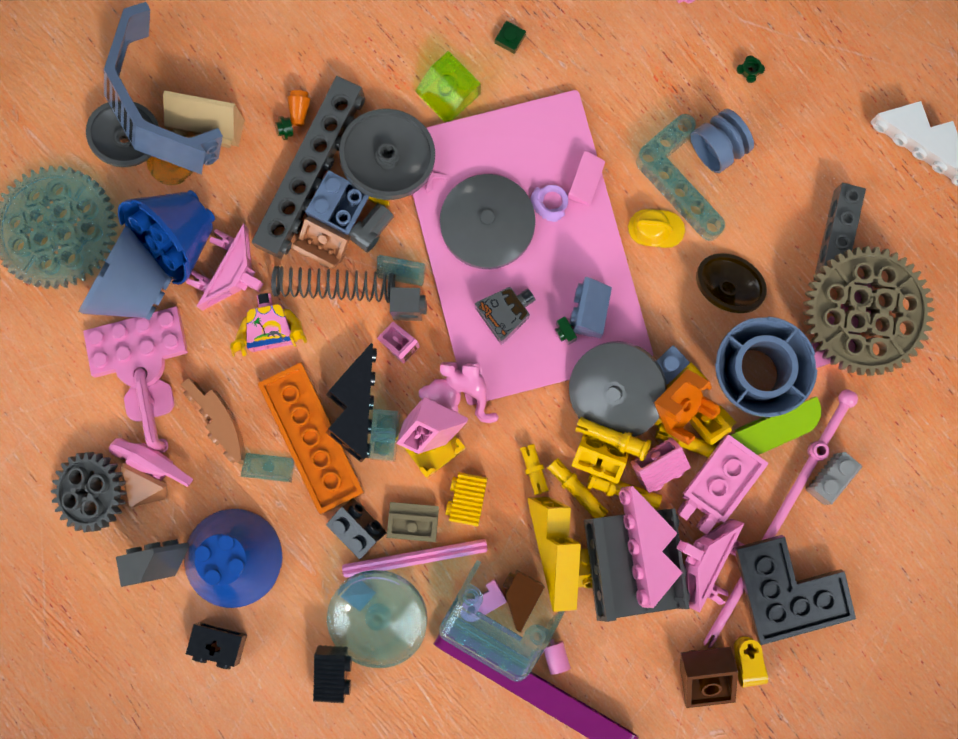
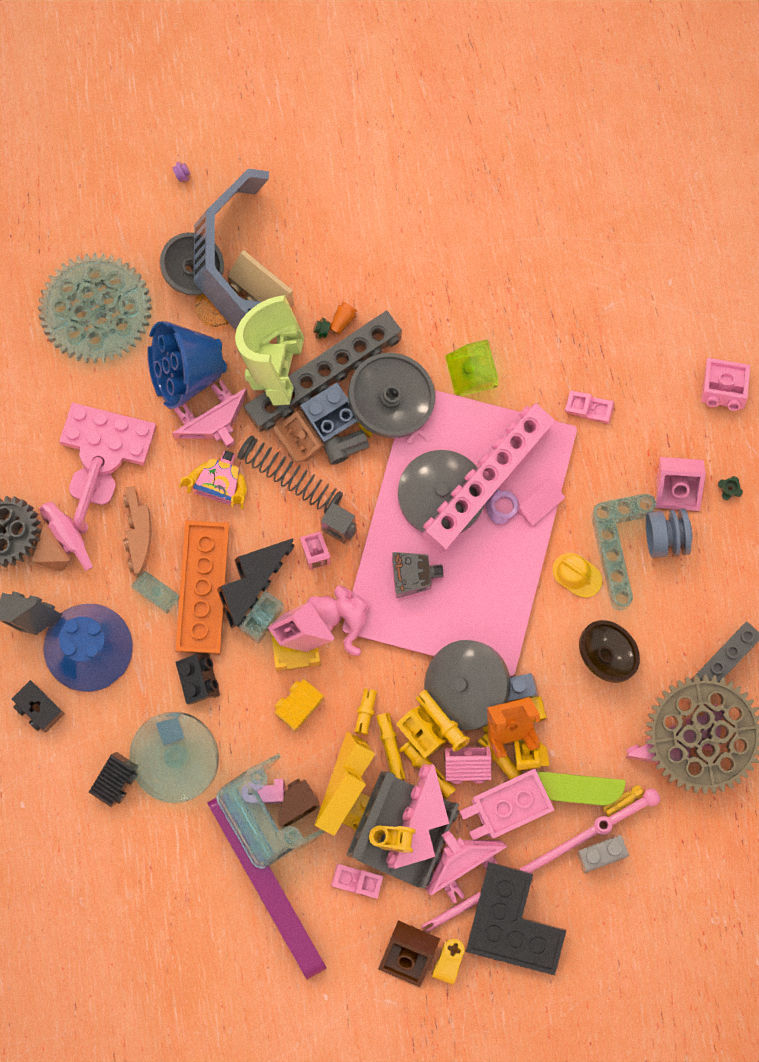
camera: 25 degrees right, 5 degrees down
(64, 51) = (181, 171): none -> medium lavender plate
(127, 281) = (130, 384): sand blue cone -> none
(251, 187) = (267, 362): none -> yellowish green piece
(404, 270) = (352, 495): clear light blue slope -> none
(412, 522) = (245, 698): dark tan plate -> none
(416, 557) = (235, 729): bright pink axle -> none
(510, 37) = (547, 354): dark green plate -> none
(541, 103) = (539, 423): none -> bright pink brick
(556, 657) = (297, 868): bright pink piece -> none
(565, 331) = (452, 615): dark green plate -> none
(576, 66) = (588, 407): none -> bright pink slope
(592, 308) = (483, 608): sand blue slope -> none
(618, 636) = (356, 881): none -> bright pink slope
(640, 580) = (397, 838): none -> yellow piece
(704, 88) = (680, 483): none -> bright pink slope
(787, 349) = (612, 709): sand blue cone -> none
(829, 402) = (625, 800): none -> yellow axle

